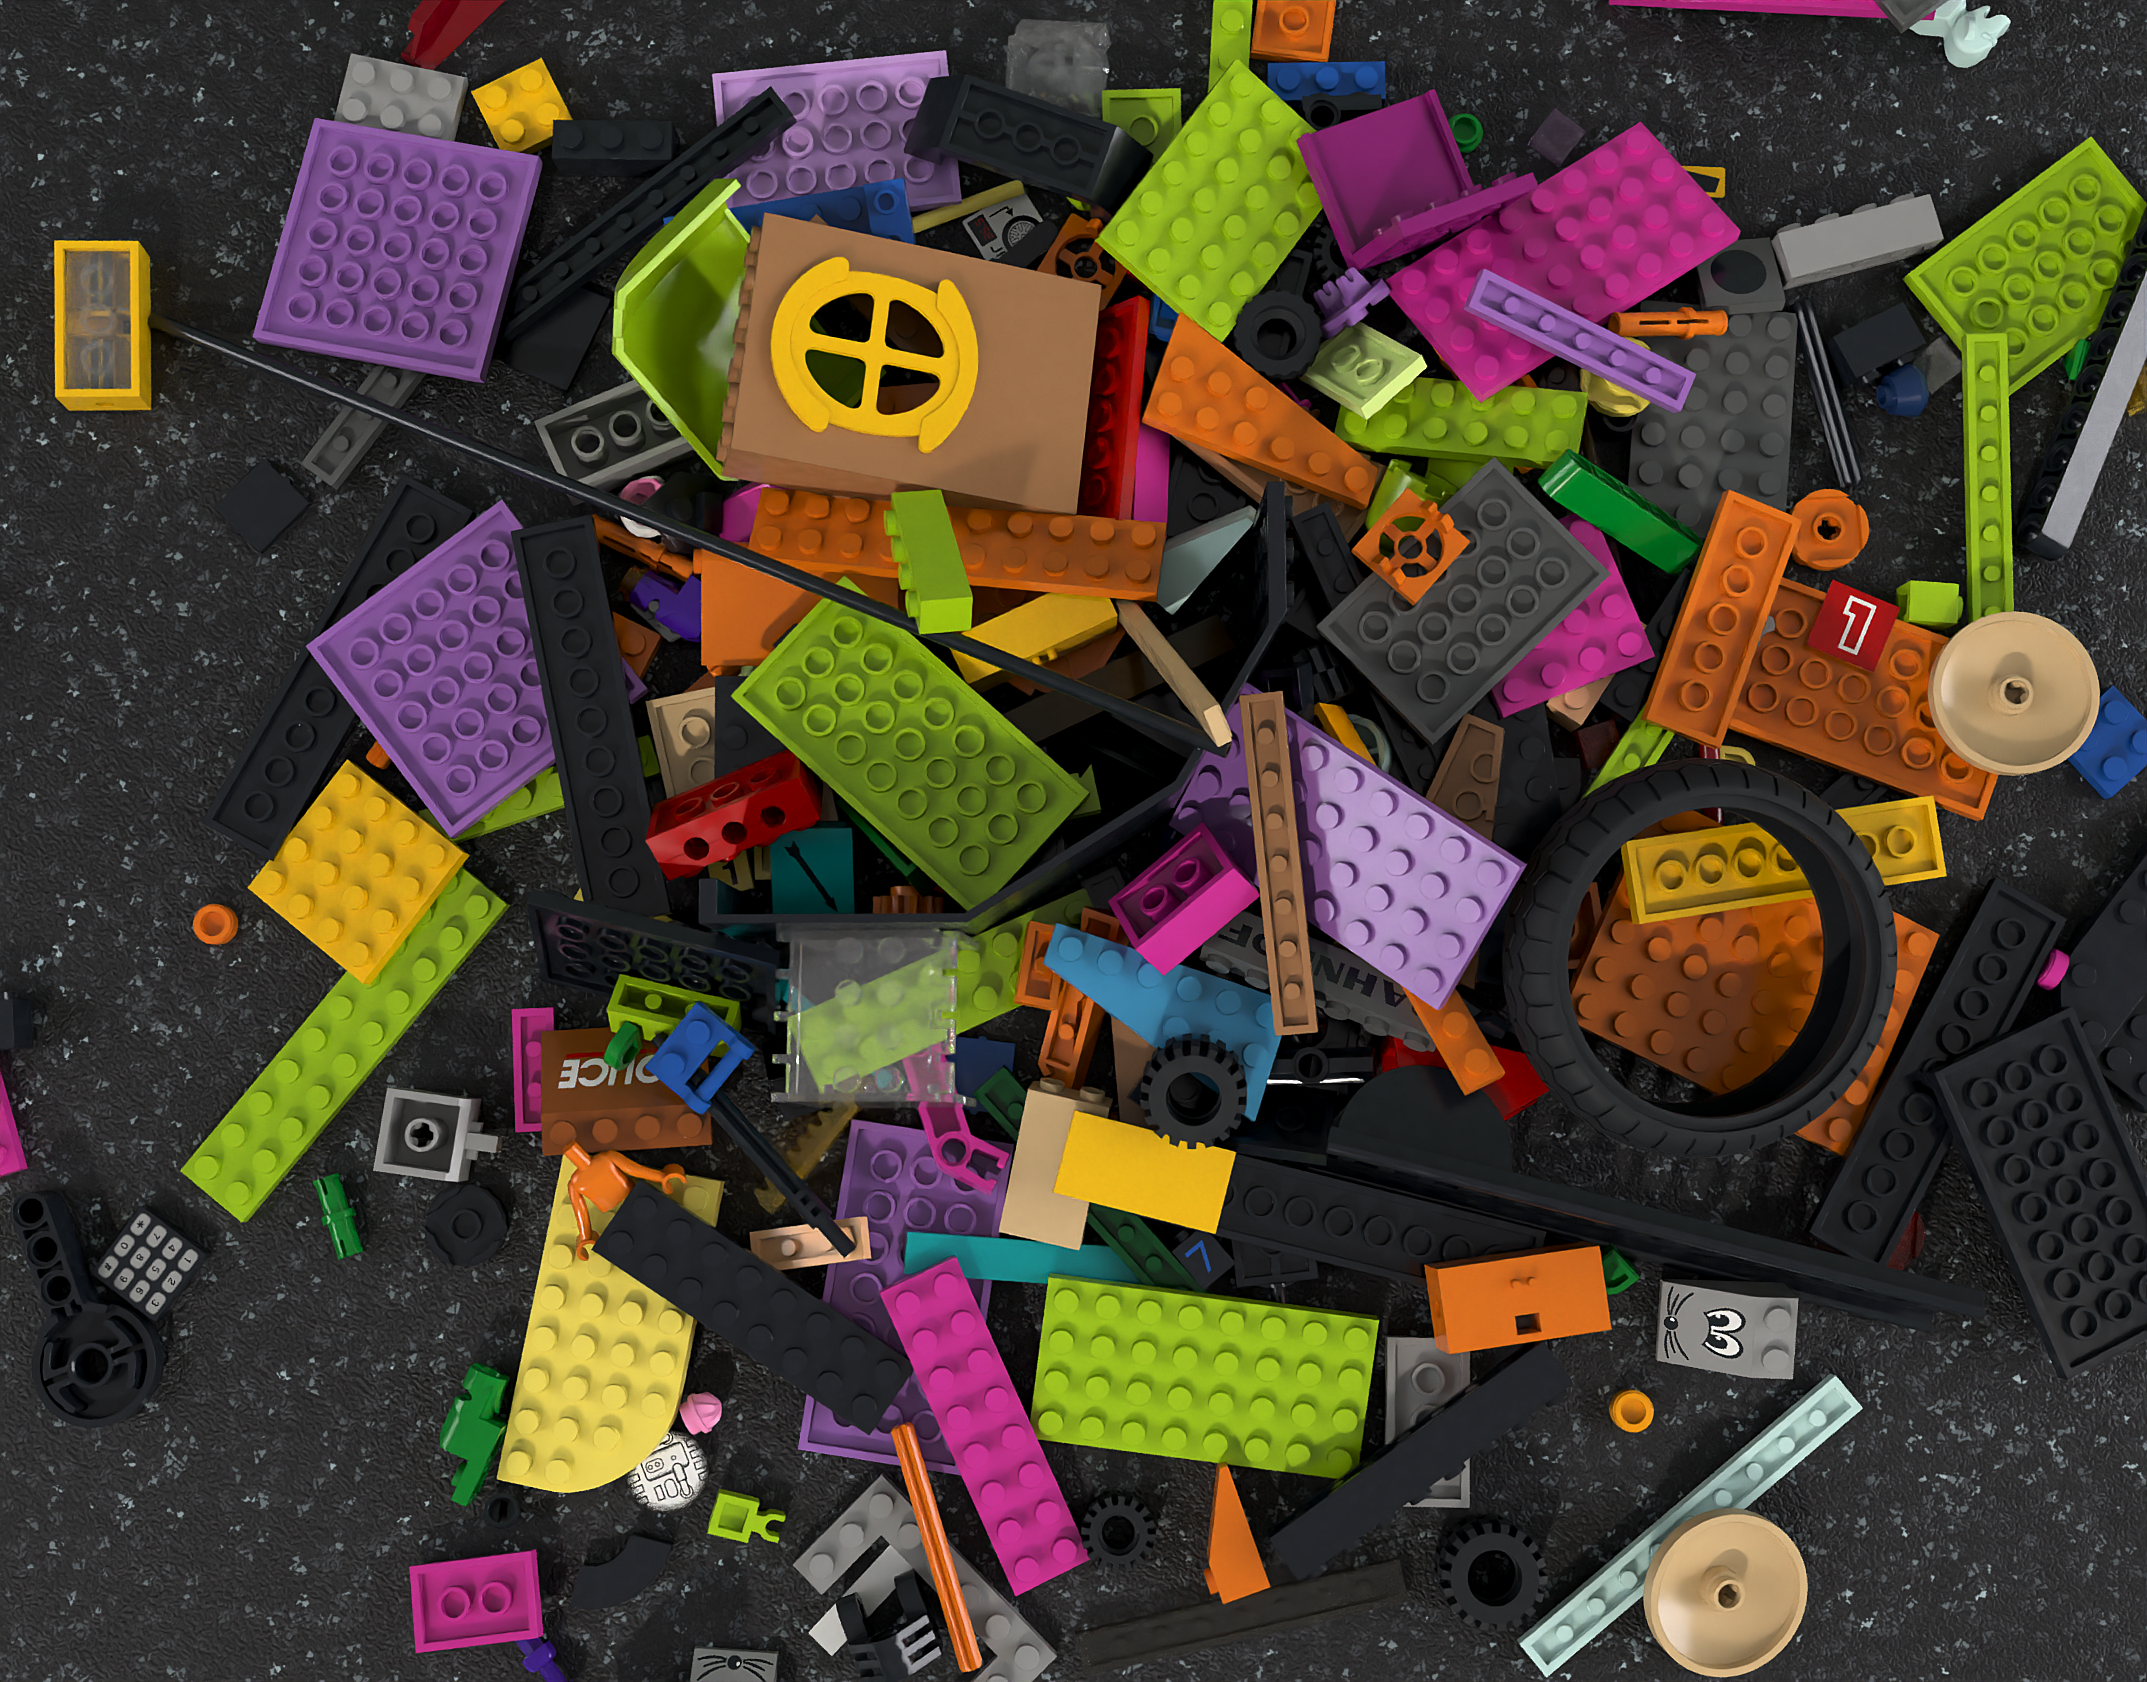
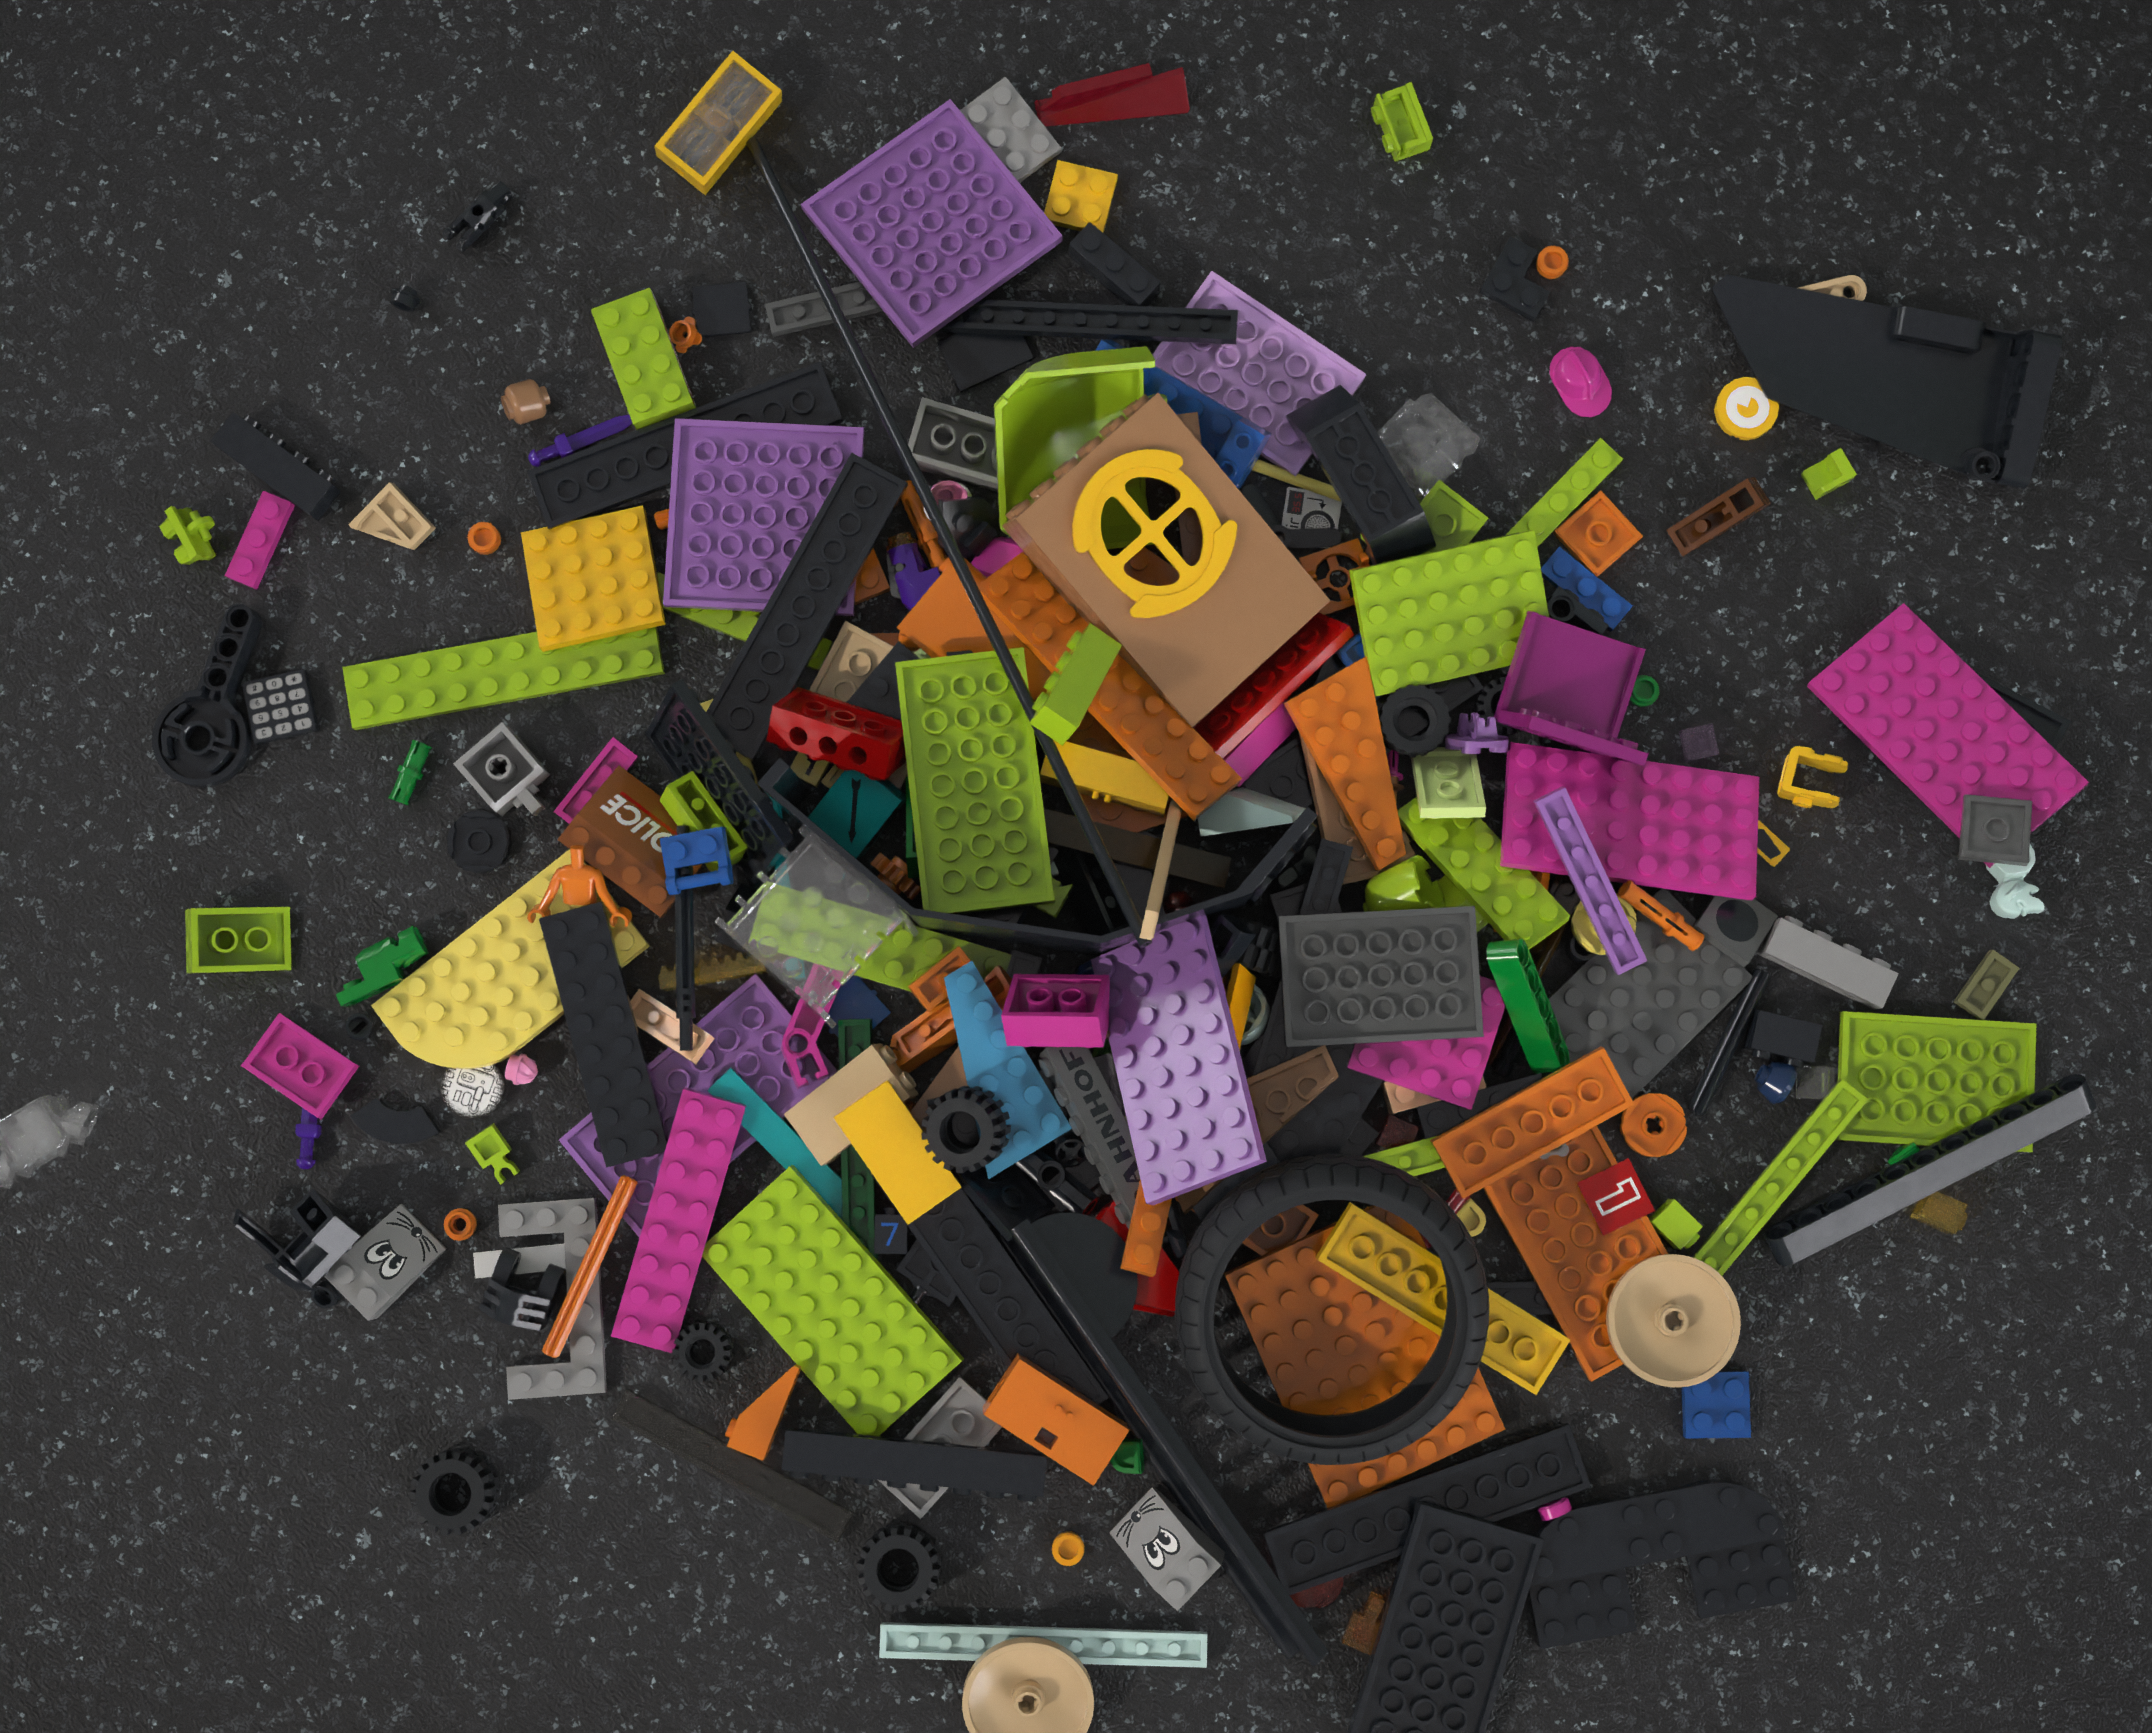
camera: 45 degrees right, 0 degrees up
(107, 981) = (393, 519): none -> tan wing
(141, 756) = (525, 401): none -> medium nougat head
(221, 764) = (566, 445): none -> dark purple sword
(223, 615) = (643, 358): none -> lime brick
(237, 561) = (678, 331): none -> orange plate
(305, 1530) = (237, 939): none -> lime slope
(623, 1047) = (658, 816): green tile -> none
(762, 1625) = (450, 1224): none -> orange plate
(1278, 863) = (1129, 1037): medium nougat plate -> none
(1411, 505) = (1397, 892): orange piece -> none
(1665, 94) = (1804, 797): none -> yellow piece
(1975, 1238) = (1364, 1627): none -> clear orange plate
(2013, 140) = (1986, 985): none -> olive plate

